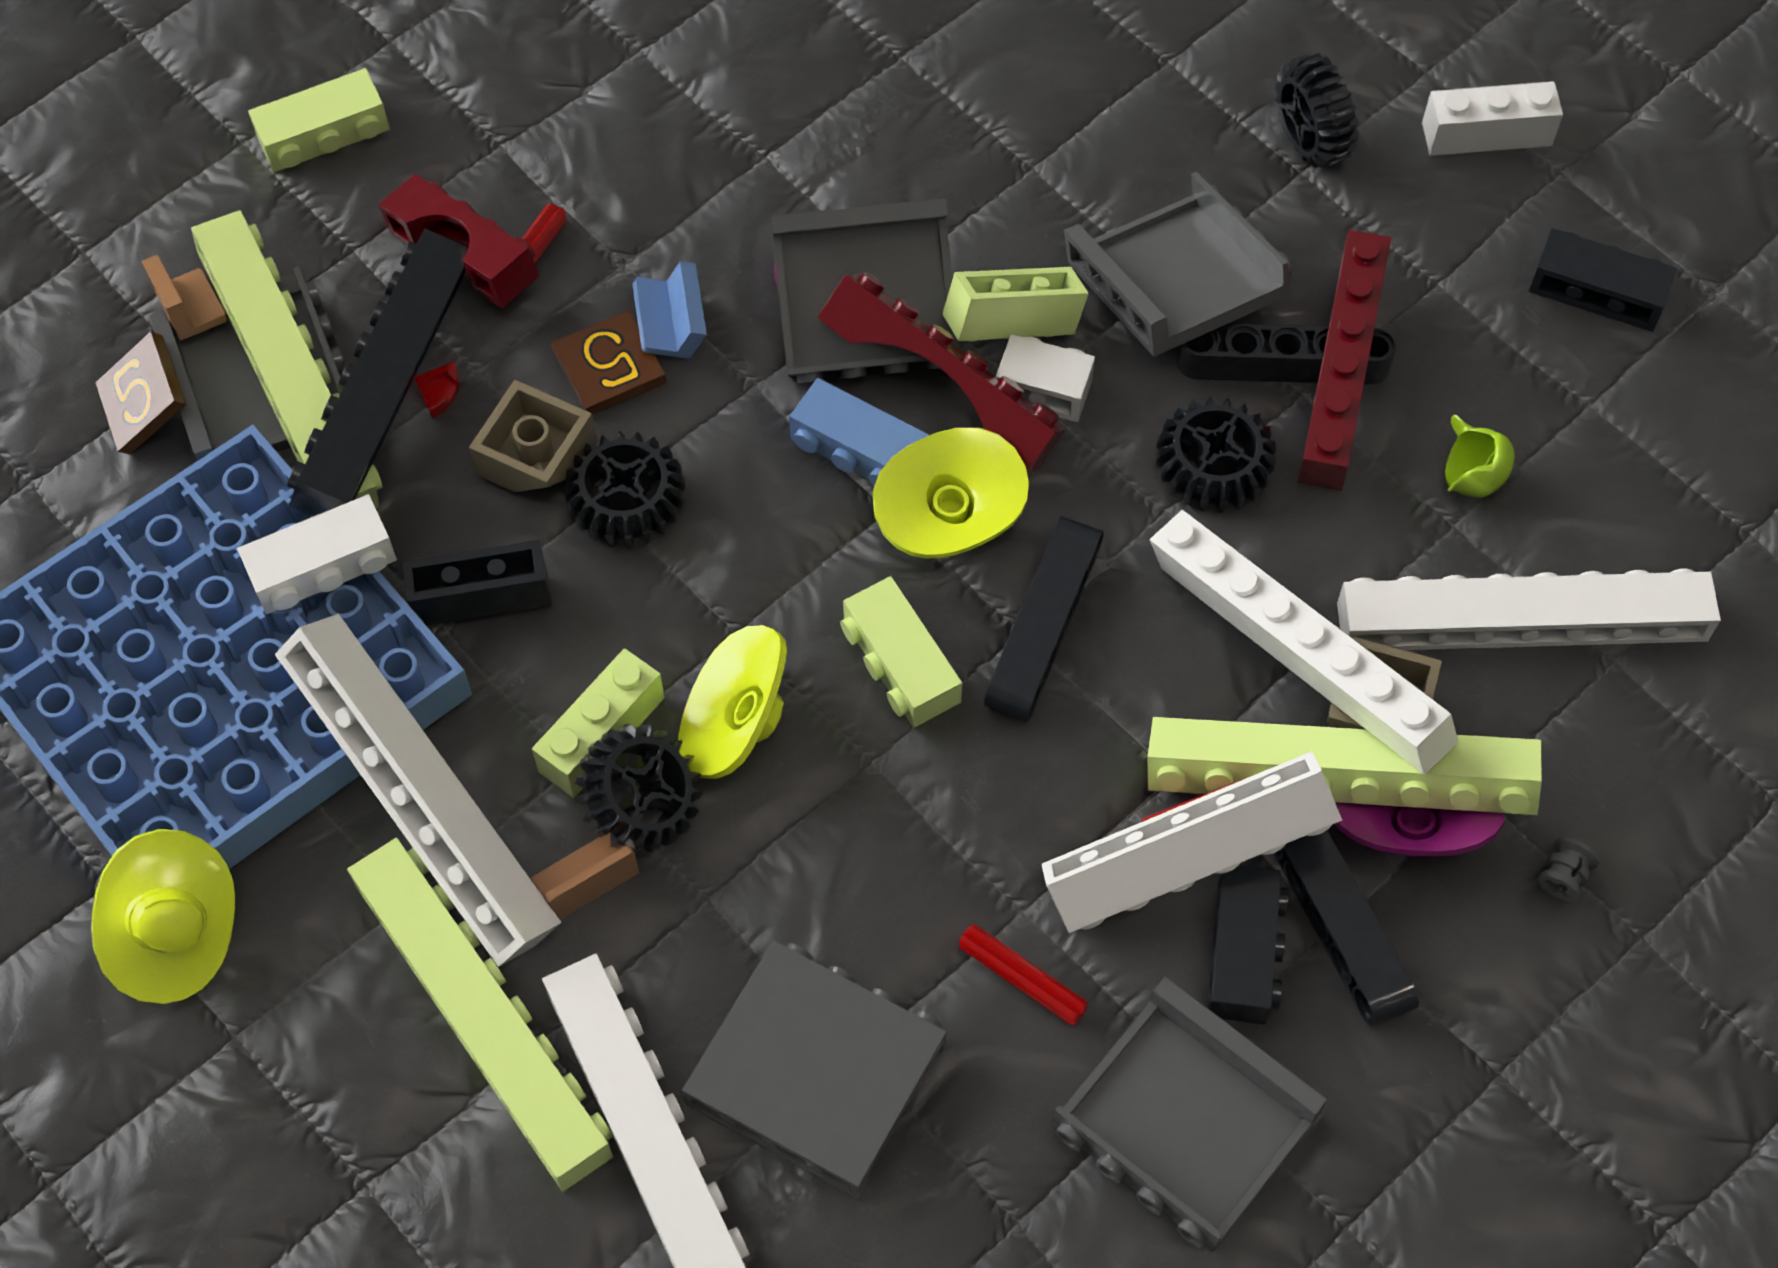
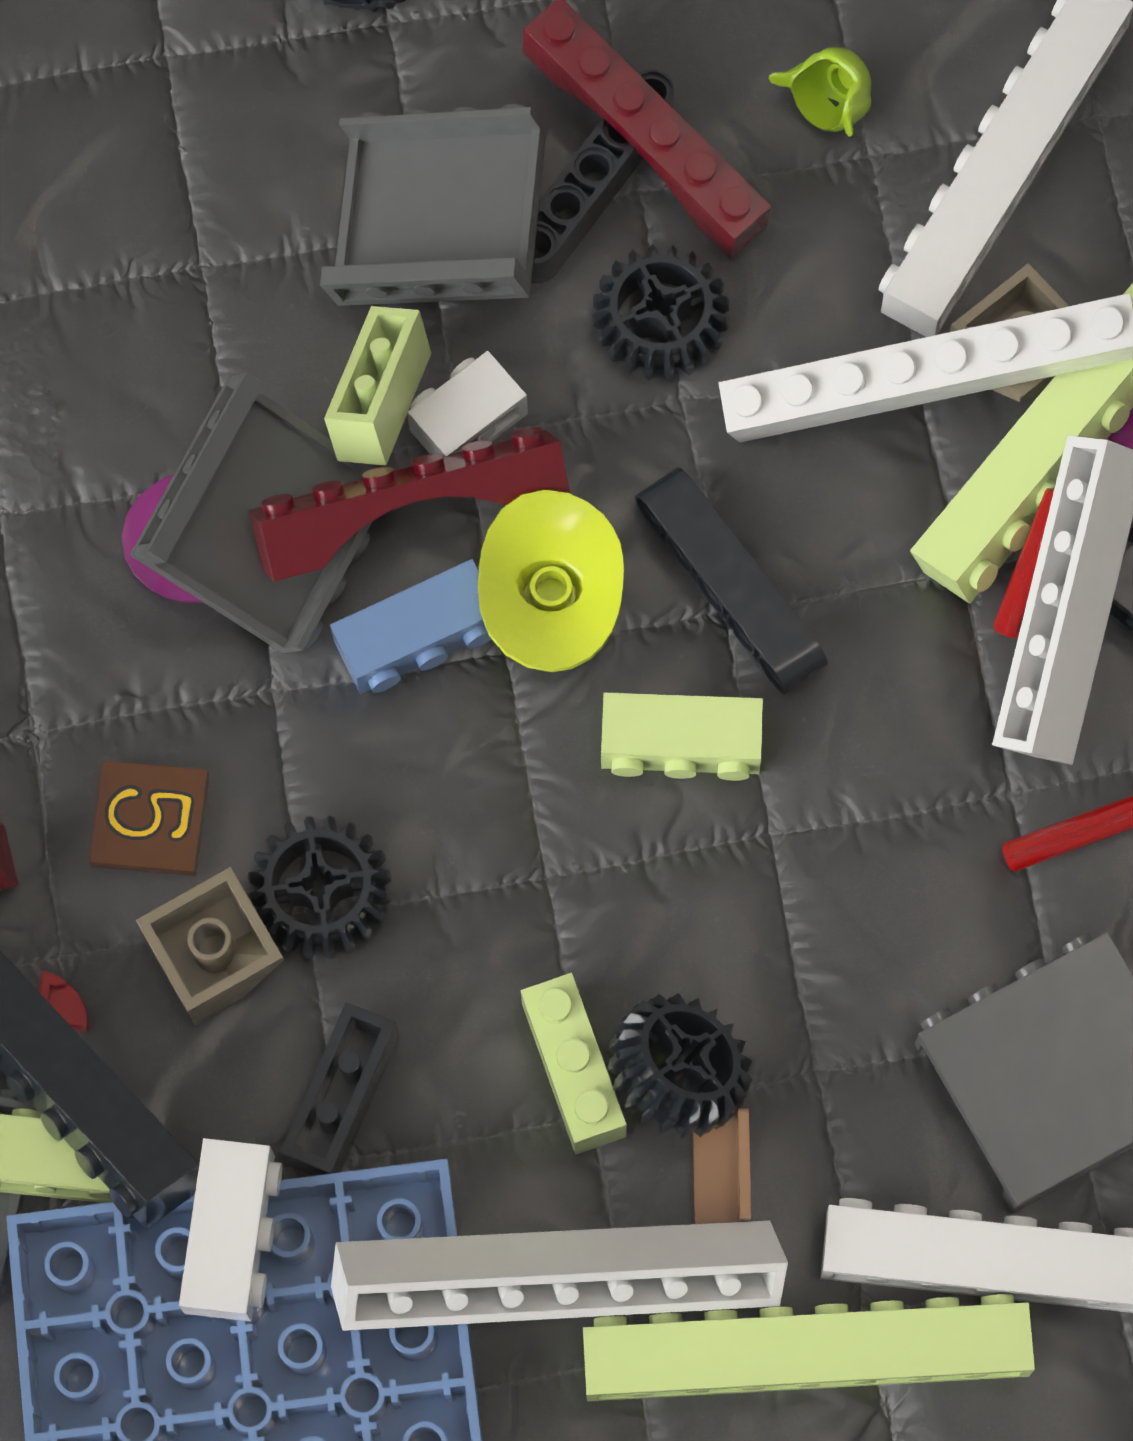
camera: 55 degrees left, 10 degrees up
(670, 313) = (139, 719): medium blue panel -> none
(734, 701) = (640, 920): neon yellow hat -> none

